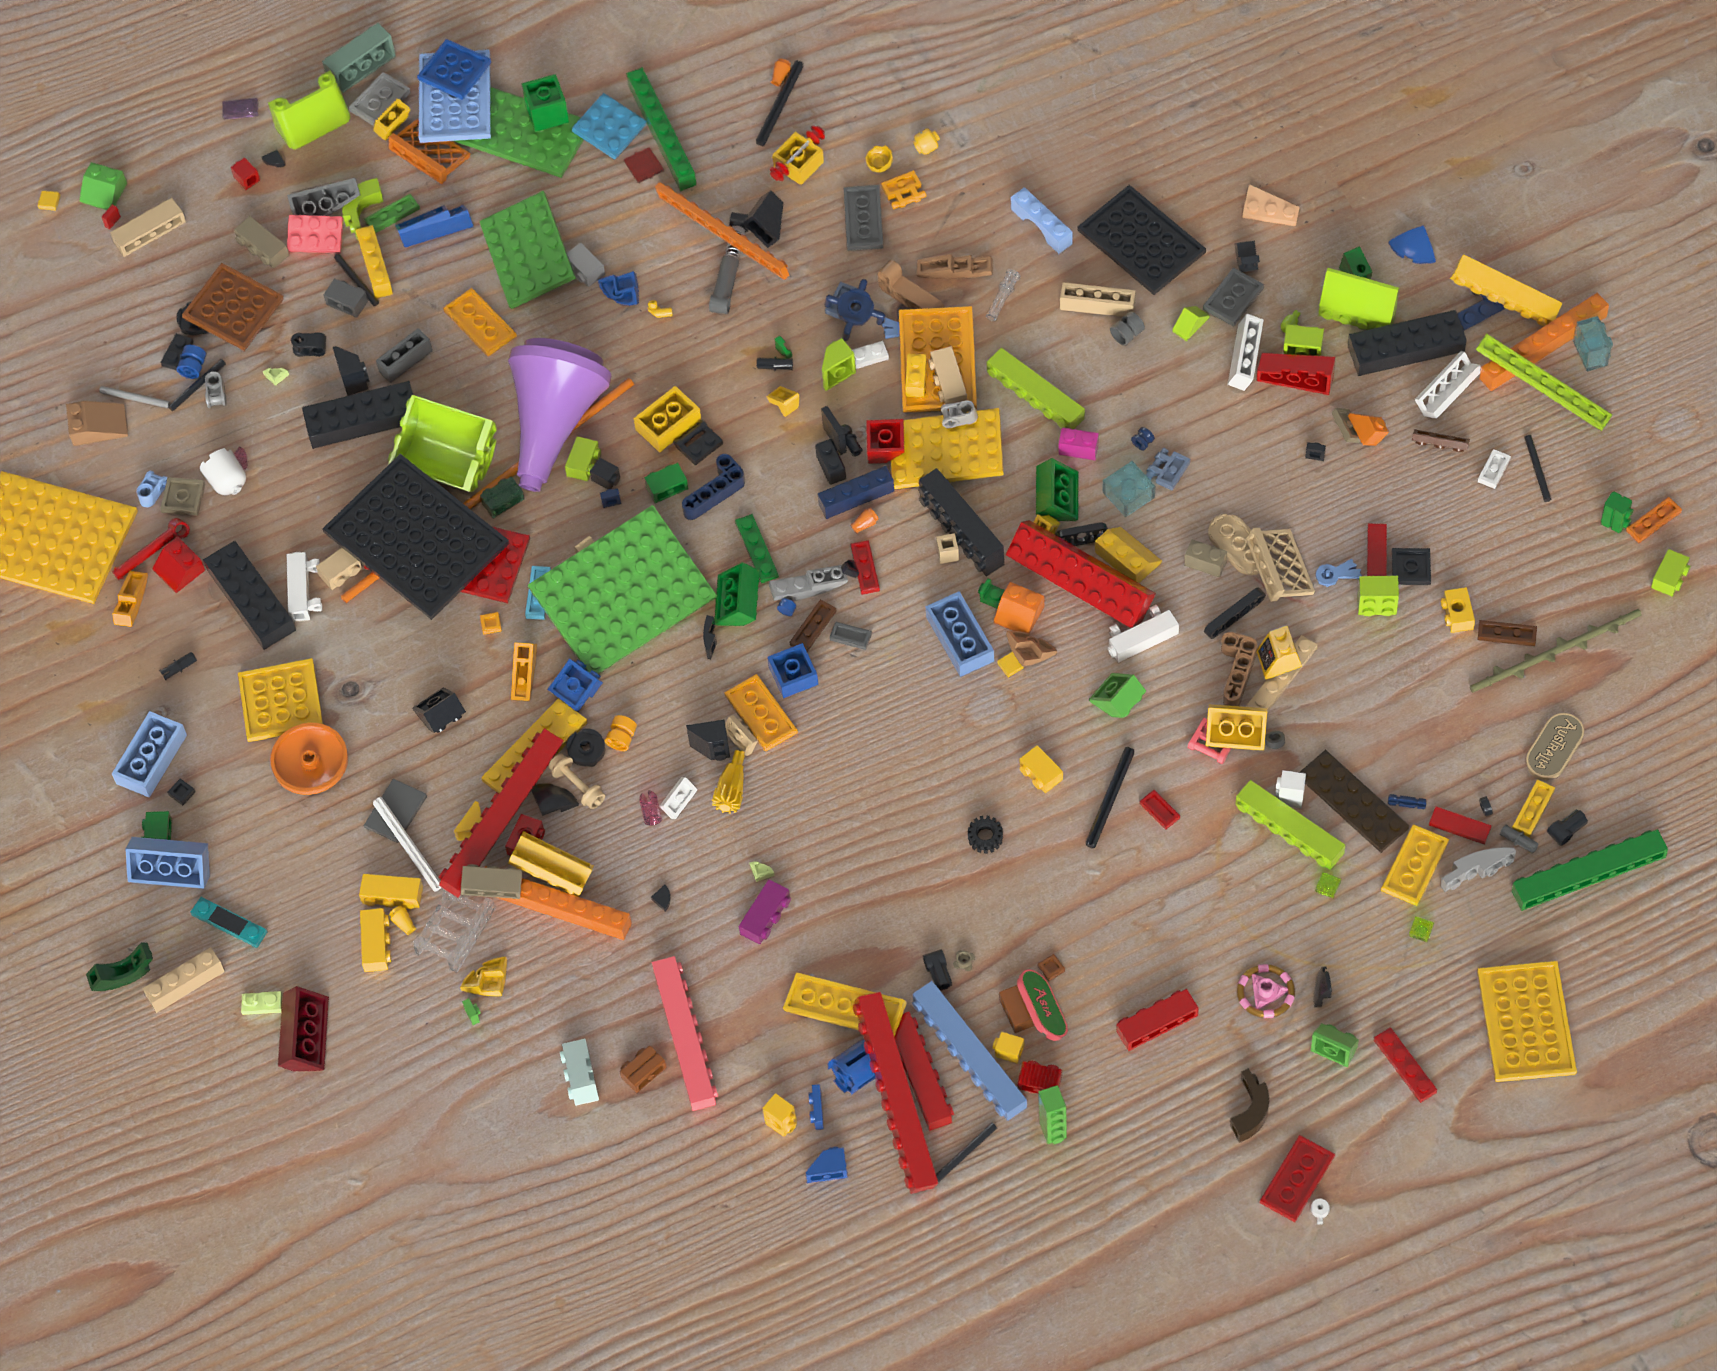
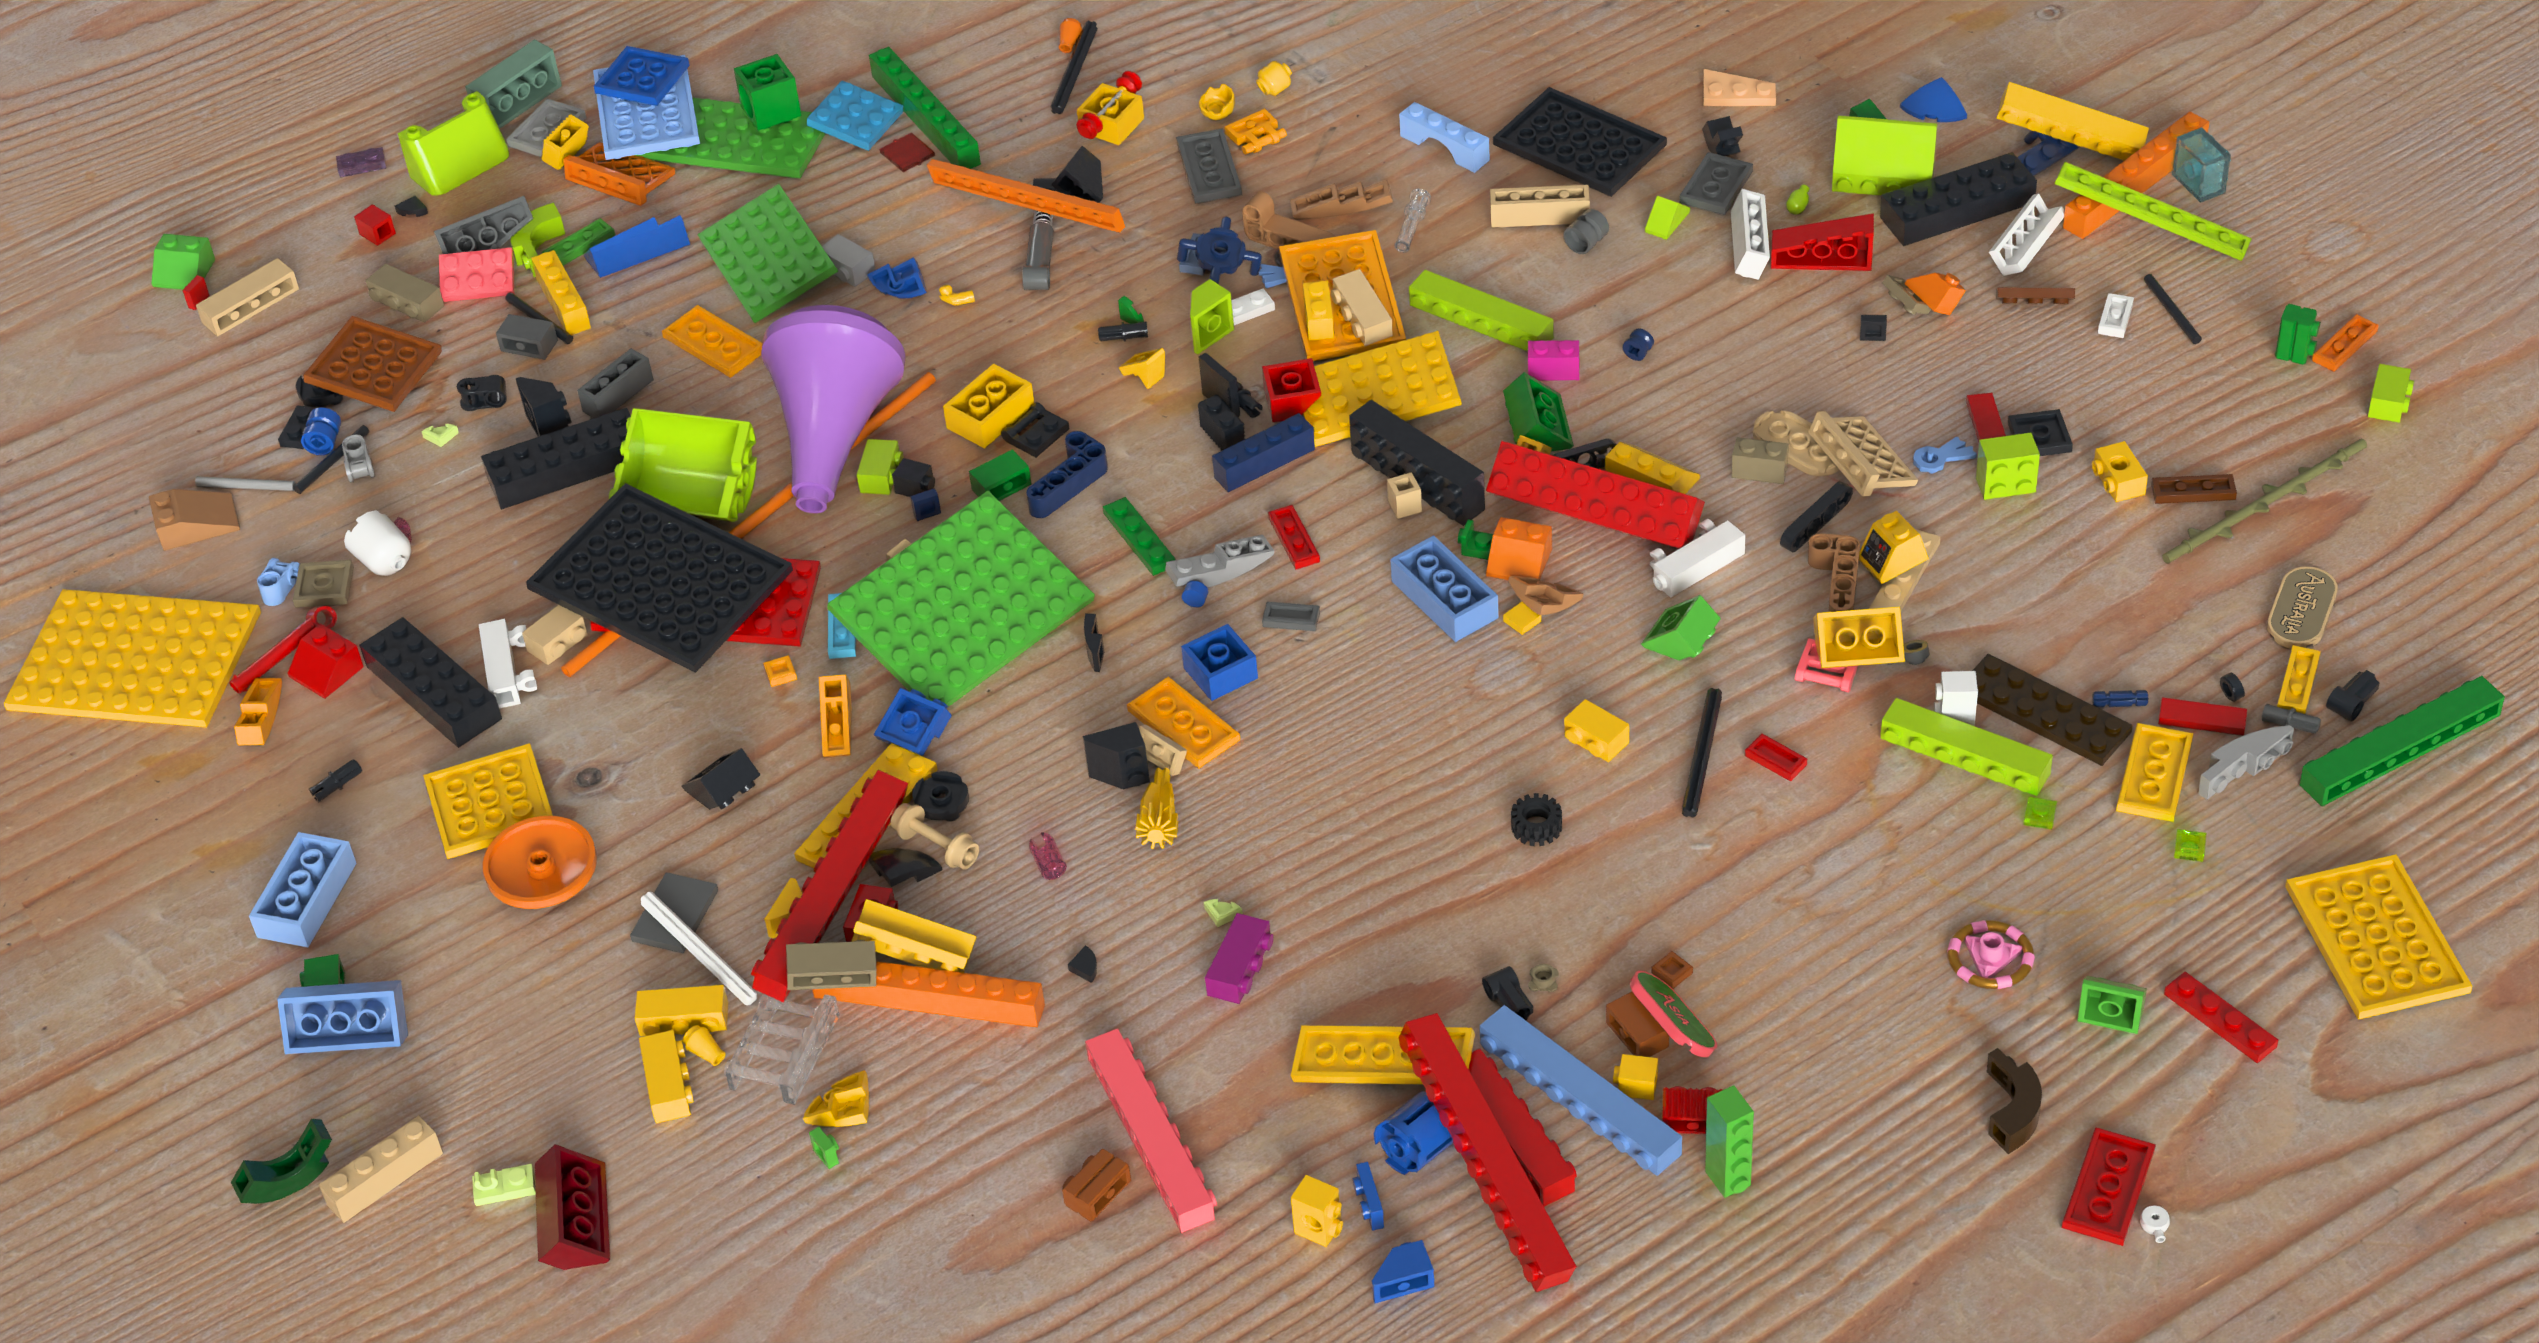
camera: 10 degrees left, 15 degrees down
(49, 200) = (109, 288): yellow tile -> none
(181, 791) = (355, 932): black plate -> none
(228, 922) = (442, 1087): teal plate -> none
(502, 497) = (774, 523): clear green brick -> none
(579, 1072) = (1001, 1203): light aqua wedge -> none
(622, 731) = (988, 770): light orange wheel -> none
(678, 798) = (1085, 837): white plate -> none
(737, 596) = (1123, 590): green slope -> none
(813, 625) = (1239, 605): reddish brown plate -> none
(849, 568) = (1275, 537): black tile -> none
(865, 519) = (1282, 483): orange cone -> none
(958, 414) = (1388, 339): light grey piece -> none
(966, 1151) = (1607, 1222): black bar -> none
(1128, 488) = (1634, 399): clear light blue brick -> none
(1157, 1019) = (1844, 1010): red brick -> none
(1172, 471) = (1687, 373): sand blue plate -> none
(1303, 340) = (1823, 204): lime brick -> none
(1322, 987) = (2073, 930): black brick -> none

